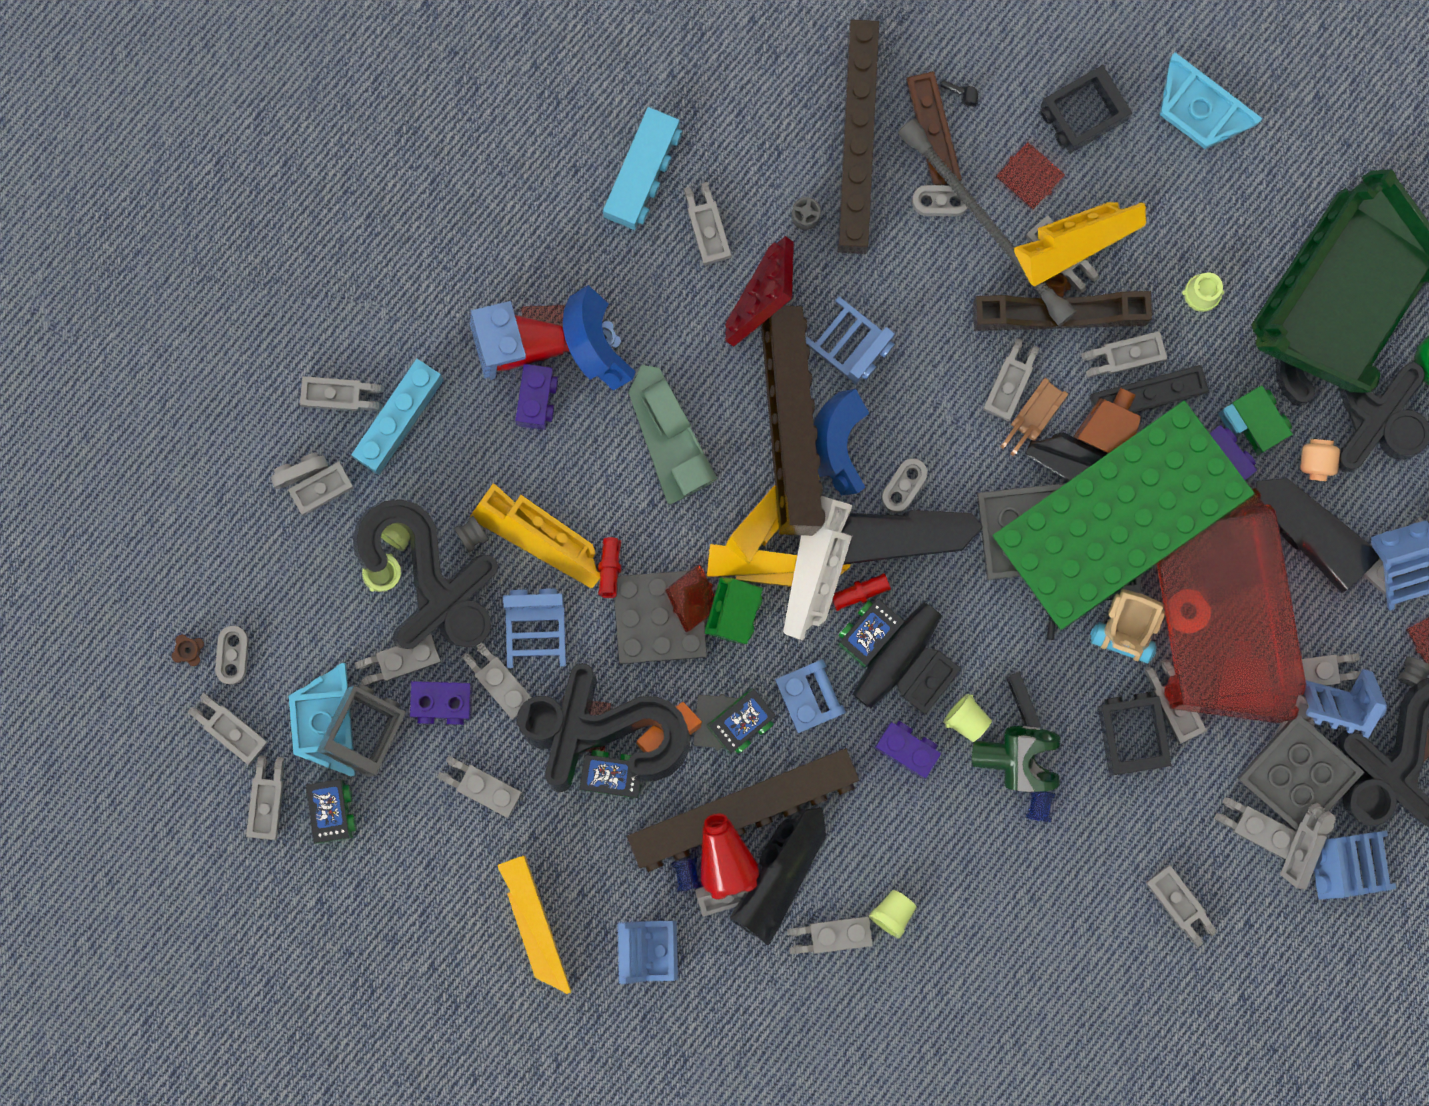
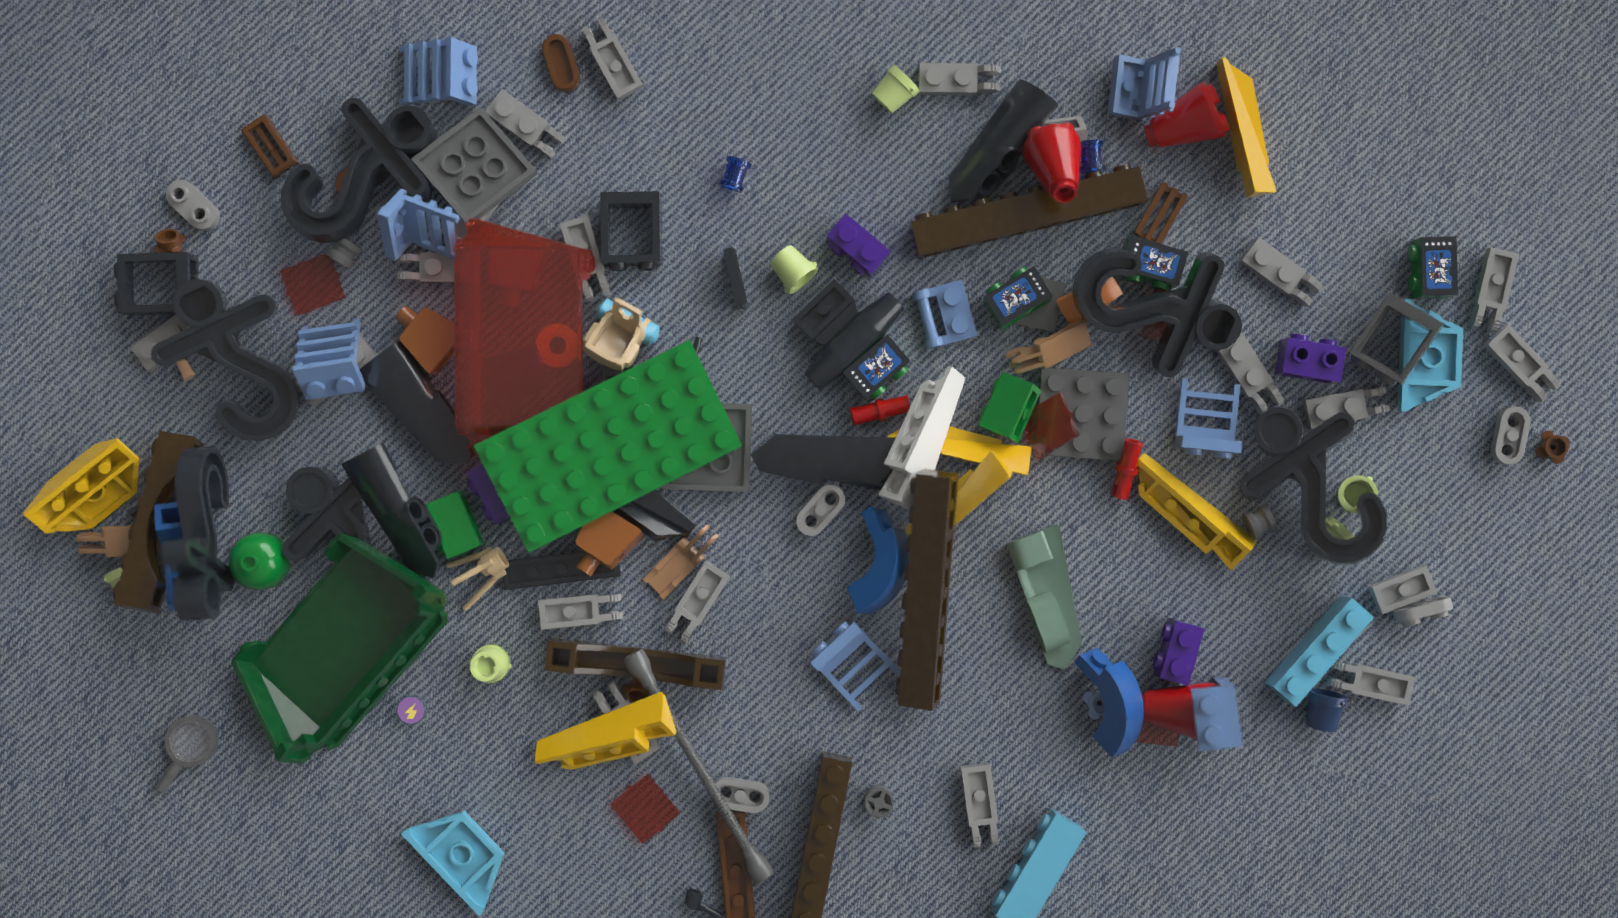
camera: 165 degrees left, 5 degrees up
(384, 361) = (1324, 709): none -> dark blue piece
(594, 924) = (1190, 121): none -> red cone
(617, 804) = (1172, 193): none -> reddish brown tile
(699, 675) = (1051, 349): none -> medium nougat arm
(765, 293) = (934, 724): dark red plate -> none
(1018, 758) = (749, 221): dark green connector -> none
(1111, 97) = (551, 879): black window -> none
(1217, 388) = (492, 563): none -> tan plant
(1231, 894) = (561, 63): none -> reddish brown tile
(1232, 420) = (482, 528): medium azure tile -> none
(1272, 237) = (411, 709): none -> medium lavender tile
(1307, 846) = (479, 94): light grey hinge -> none
(1312, 416) = (401, 517): none -> black panel
(1318, 599) = (427, 337): none -> dark orange torso
(1320, 459) = (408, 473): light nougat head -> none

